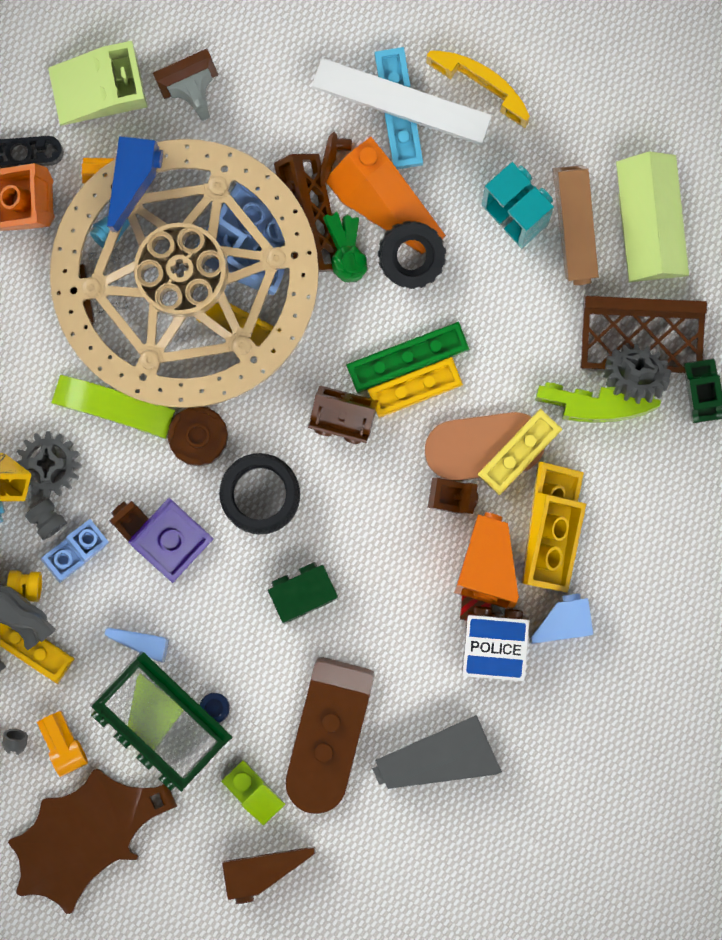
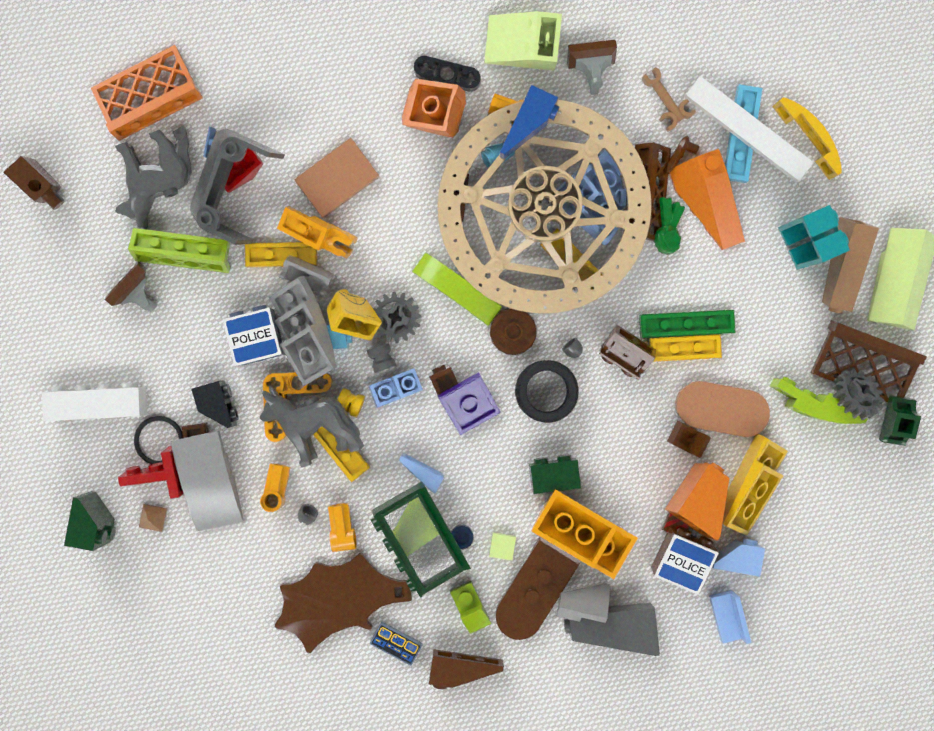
camera: 15 degrees right, 5 degrees up
(174, 867) = (396, 643): none -> tile
(268, 703) = (502, 546): none -> yellowish green tile
(278, 432) = (573, 348): none -> dark grey hinge
(311, 110) = (675, 113): none -> medium nougat bar
(359, 651) = (583, 534): none -> light orange slope
(391, 736) = (585, 603): none -> light grey slope
(434, 254) = (733, 257): black tyre -> none
(519, 452) = (748, 422): light yellow tile -> none
(577, 700) = (729, 617): none -> light blue panel

